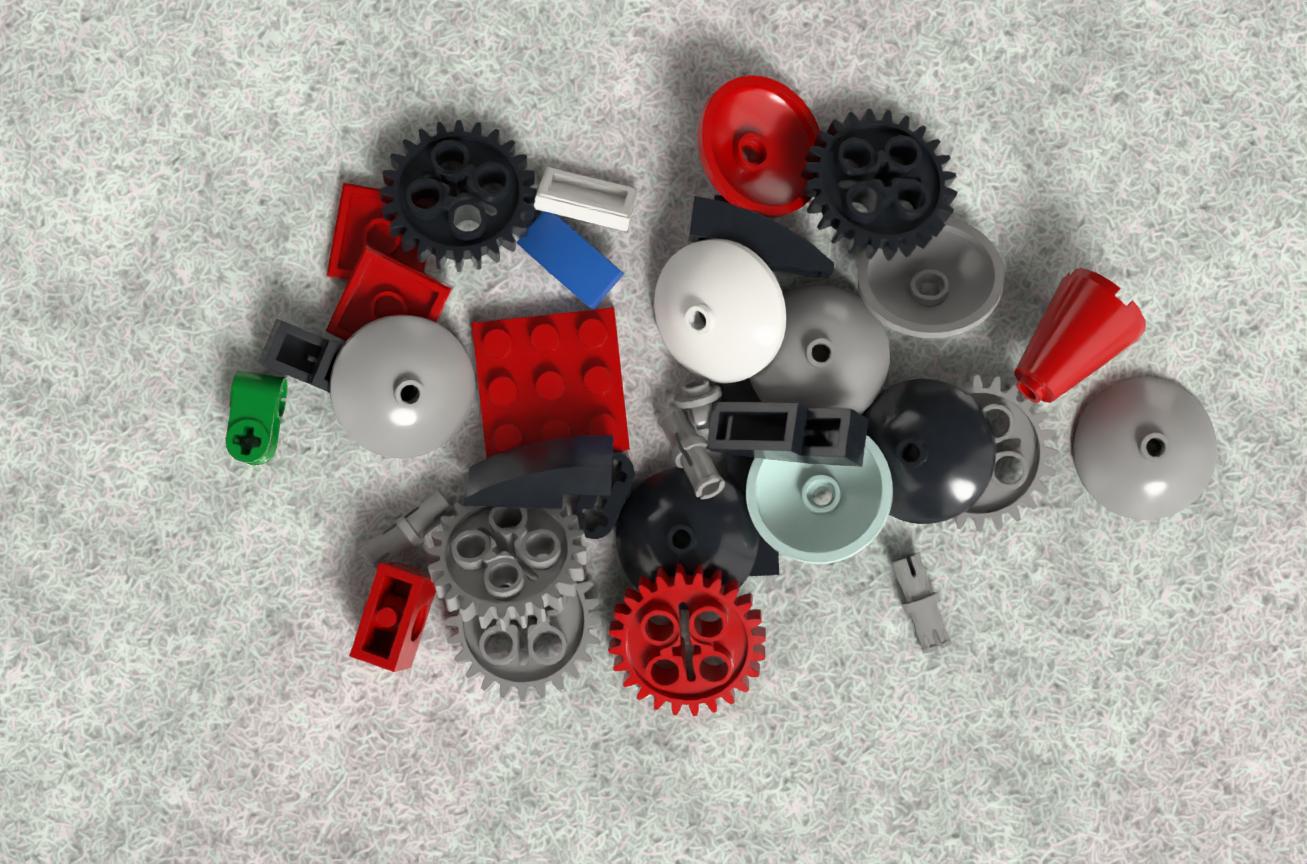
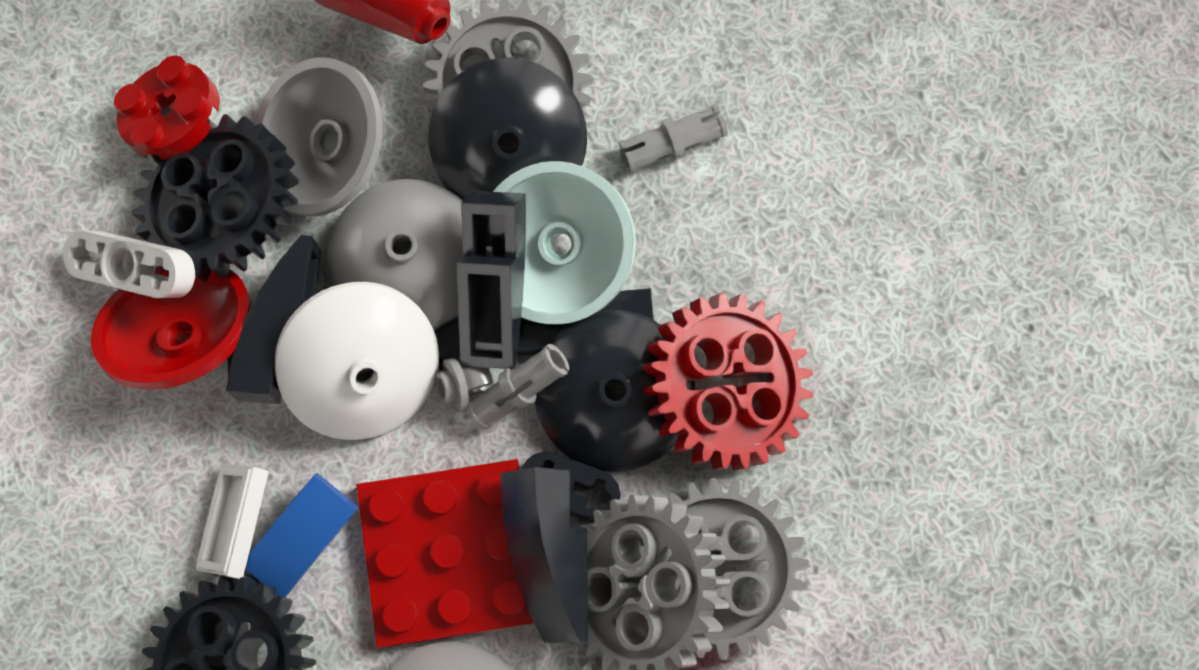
camera: 90 degrees left, 10 degrees down
(824, 123) = (145, 258): none -> white beam
(982, 123) = (169, 84): none -> red plate

